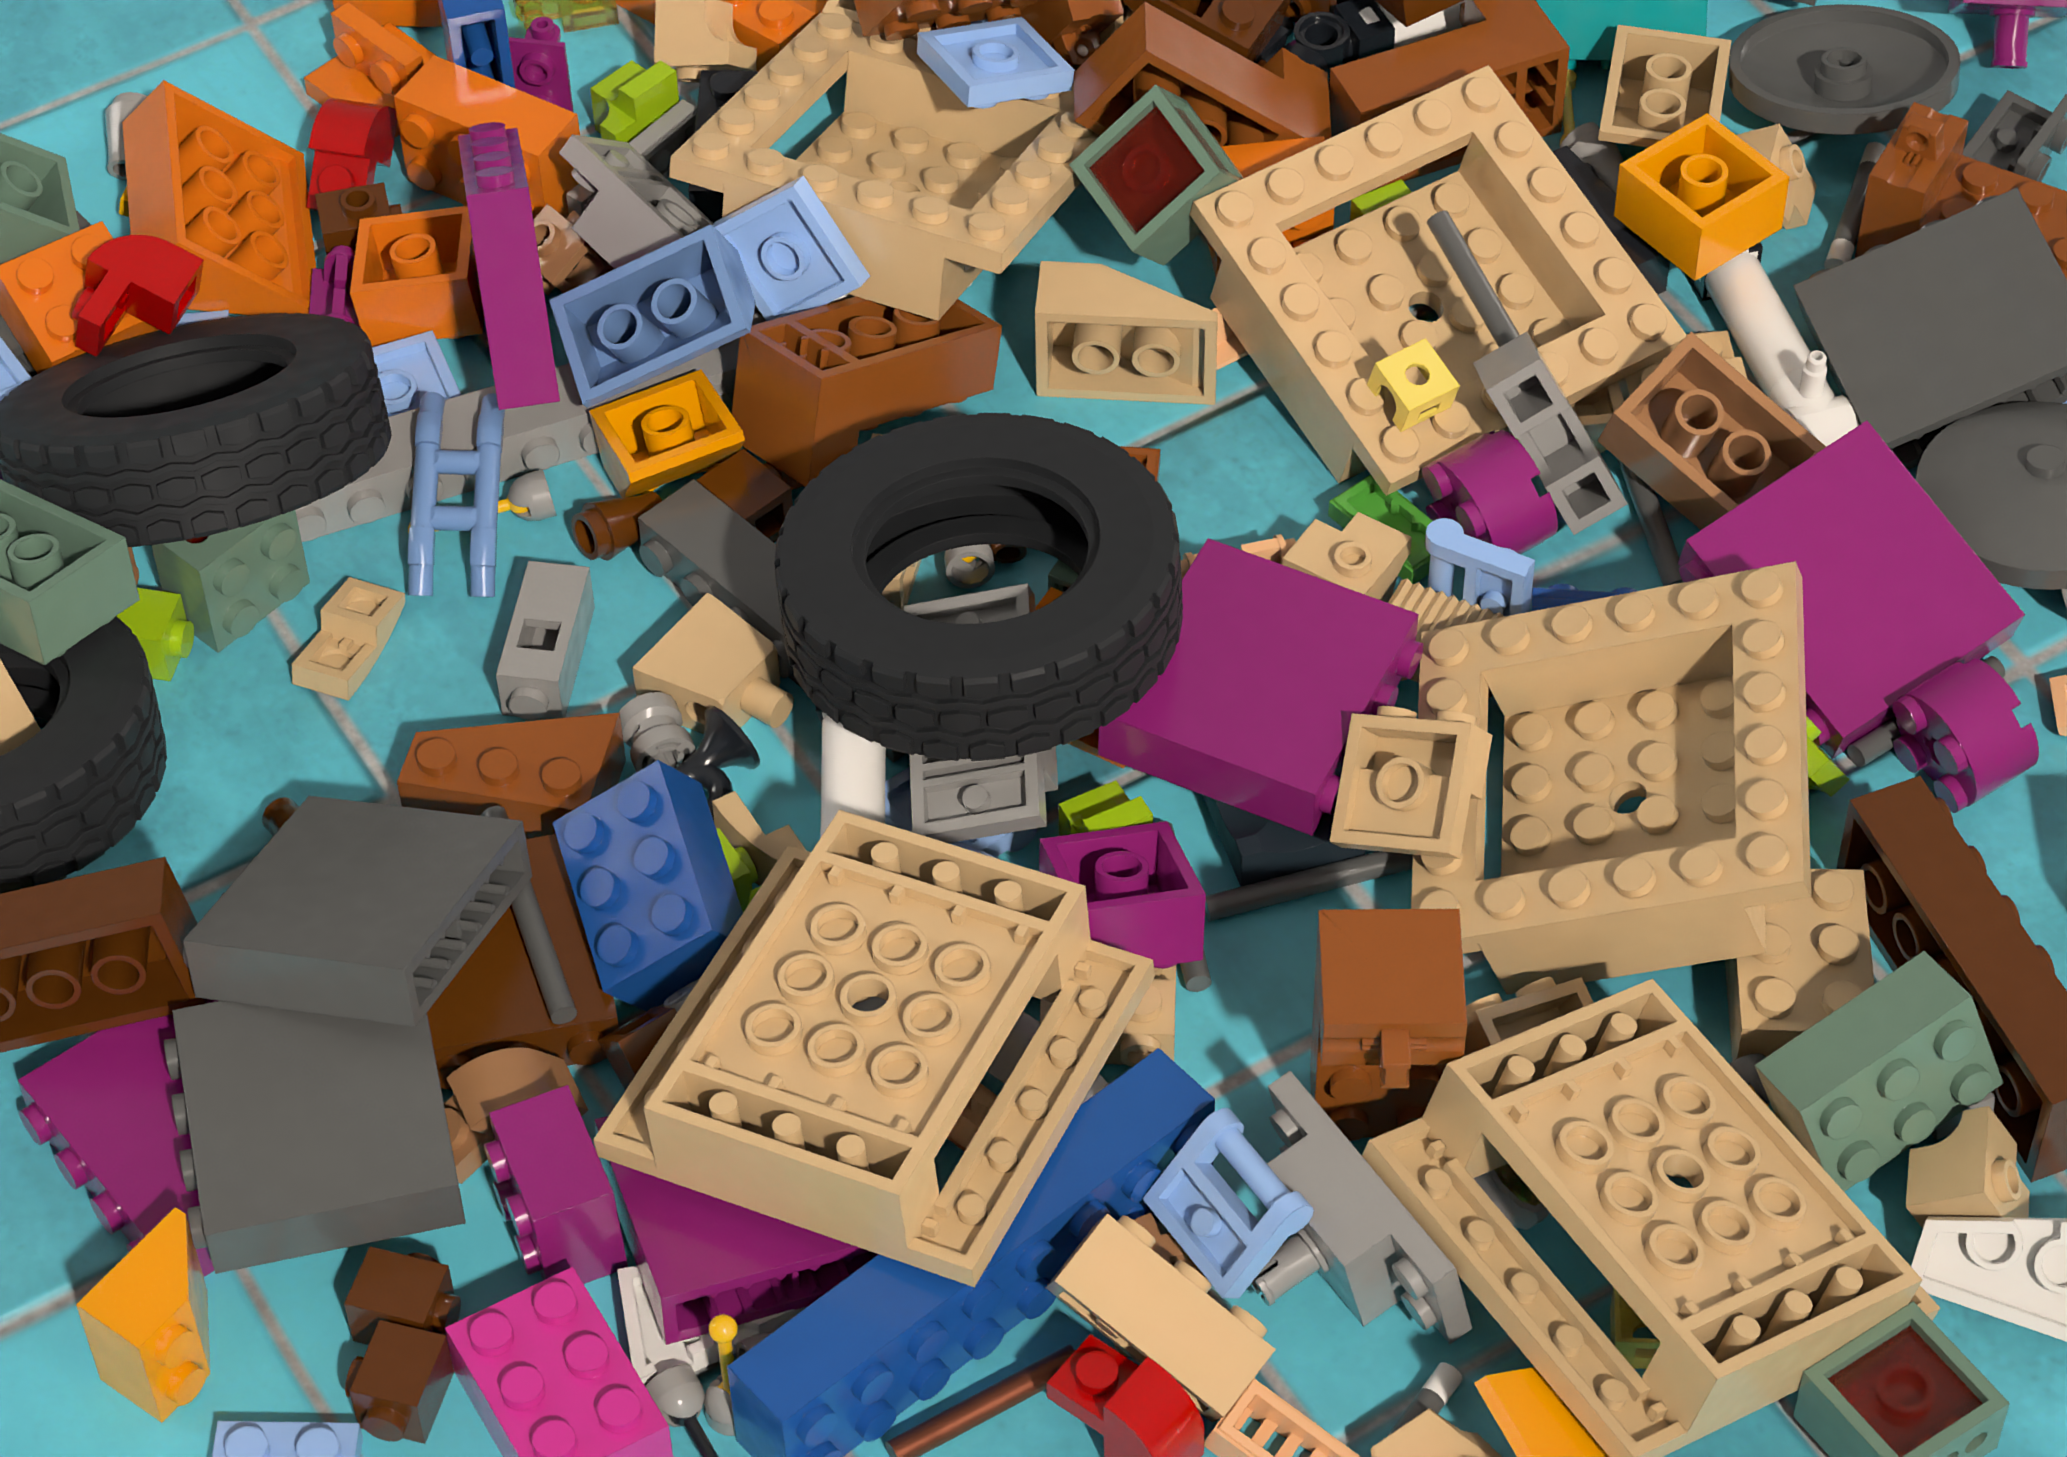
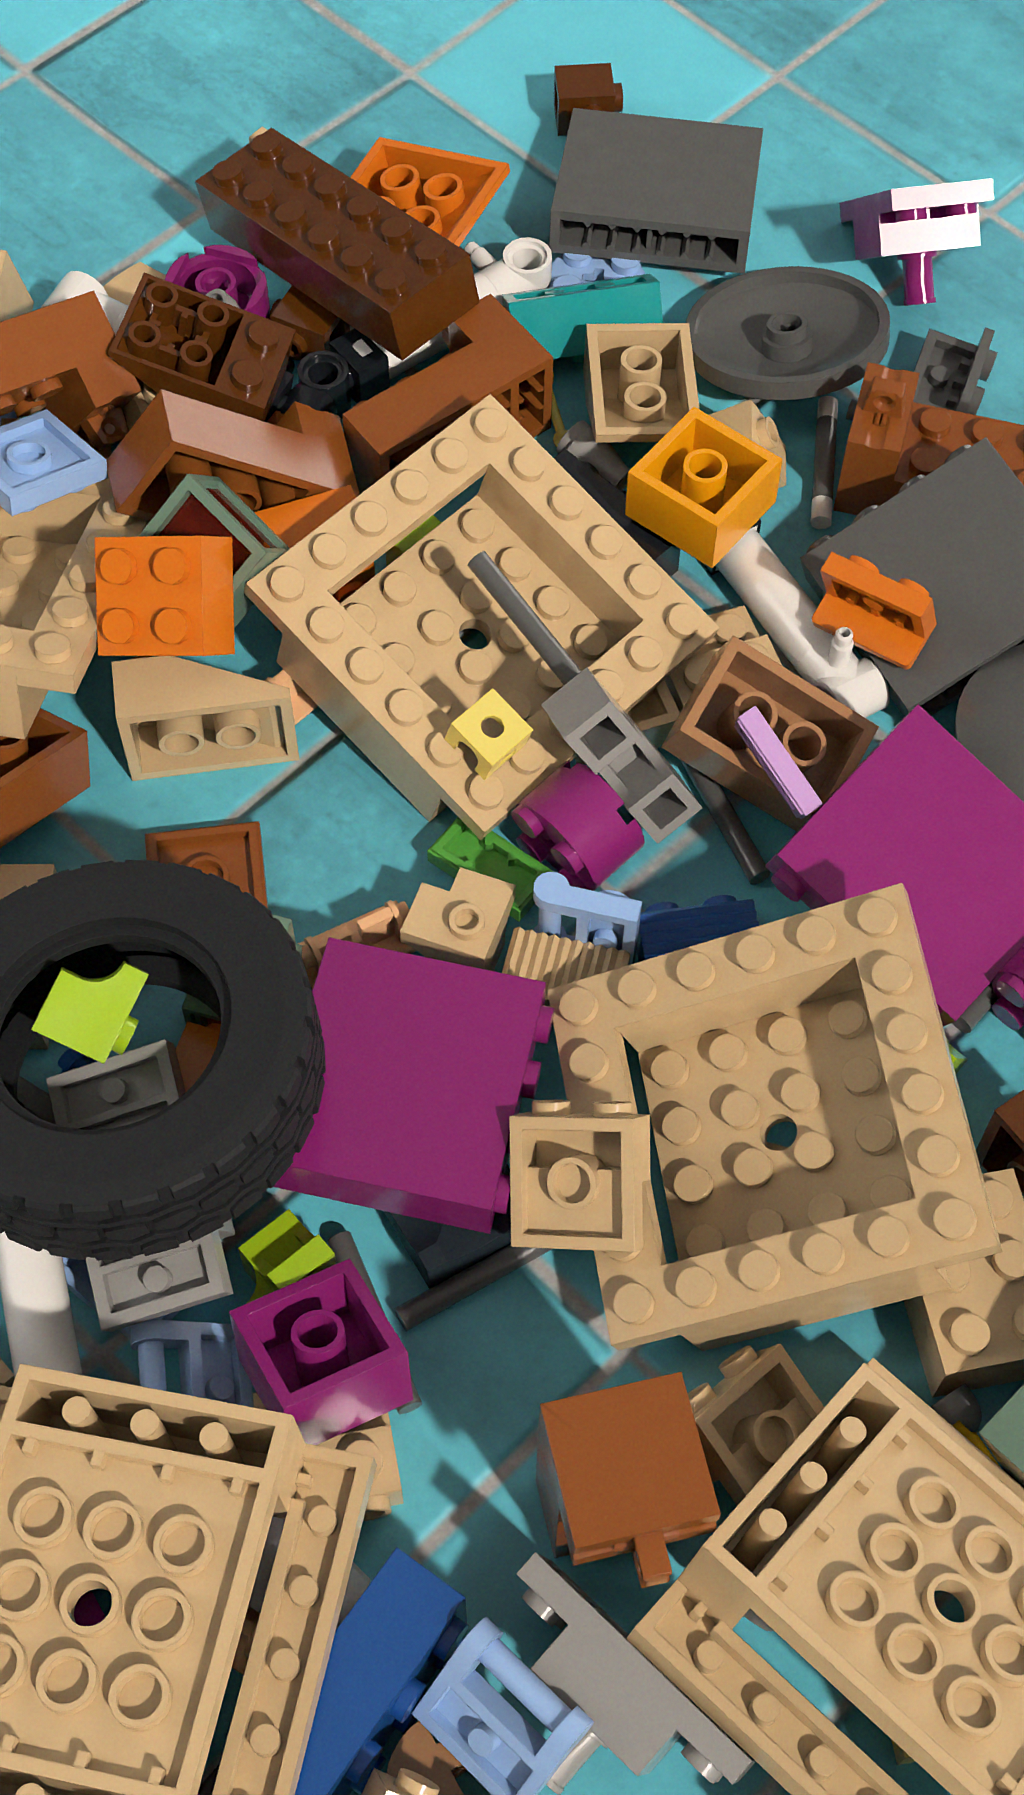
camera: 15 degrees left, 10 degrees up
(963, 540) = (92, 1012): none -> lime brick
(1109, 199) = (164, 596): none -> orange brick
(1706, 454) = (777, 763): none -> lavender tile
(1863, 344) = (884, 614): none -> orange bracket

